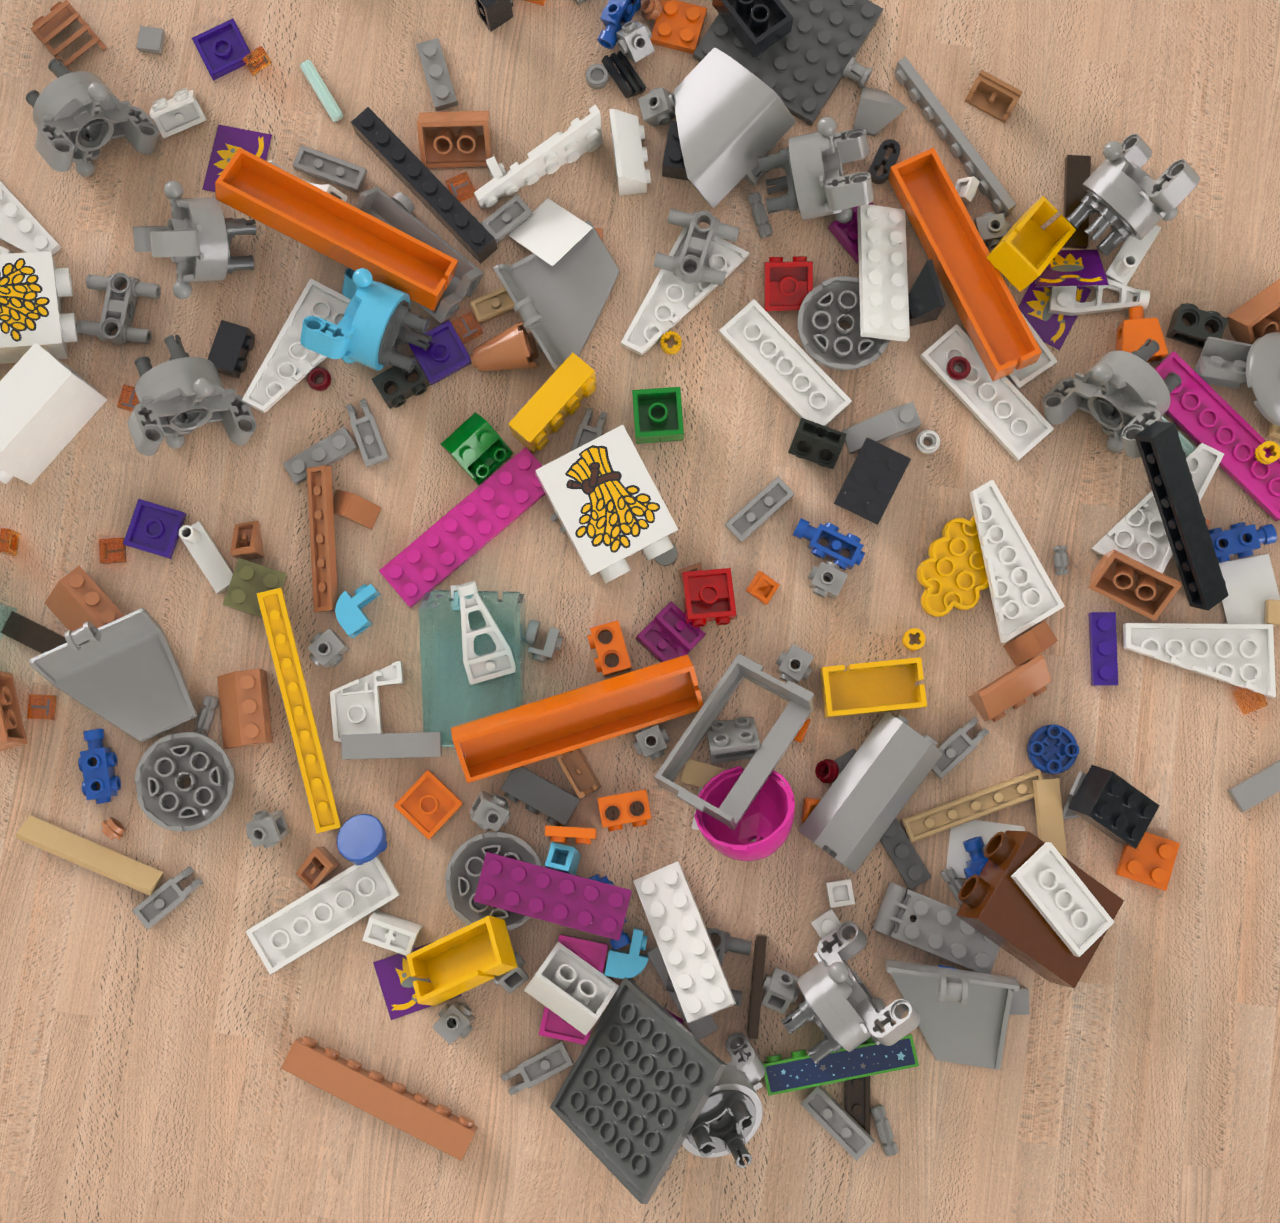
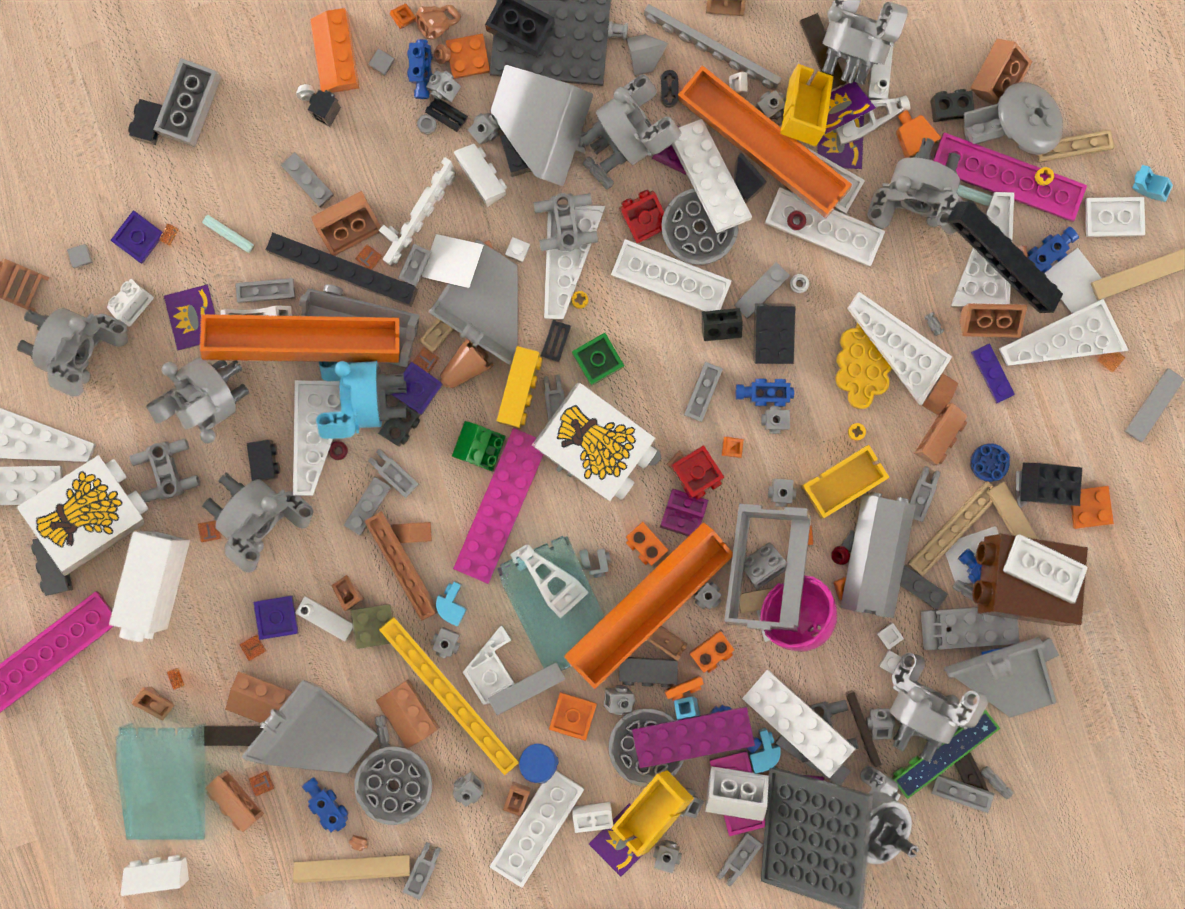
camera: 30 degrees left, 5 degrees up
(629, 256) = (517, 249): none -> white plate
(635, 361) = (561, 325): none -> black tile

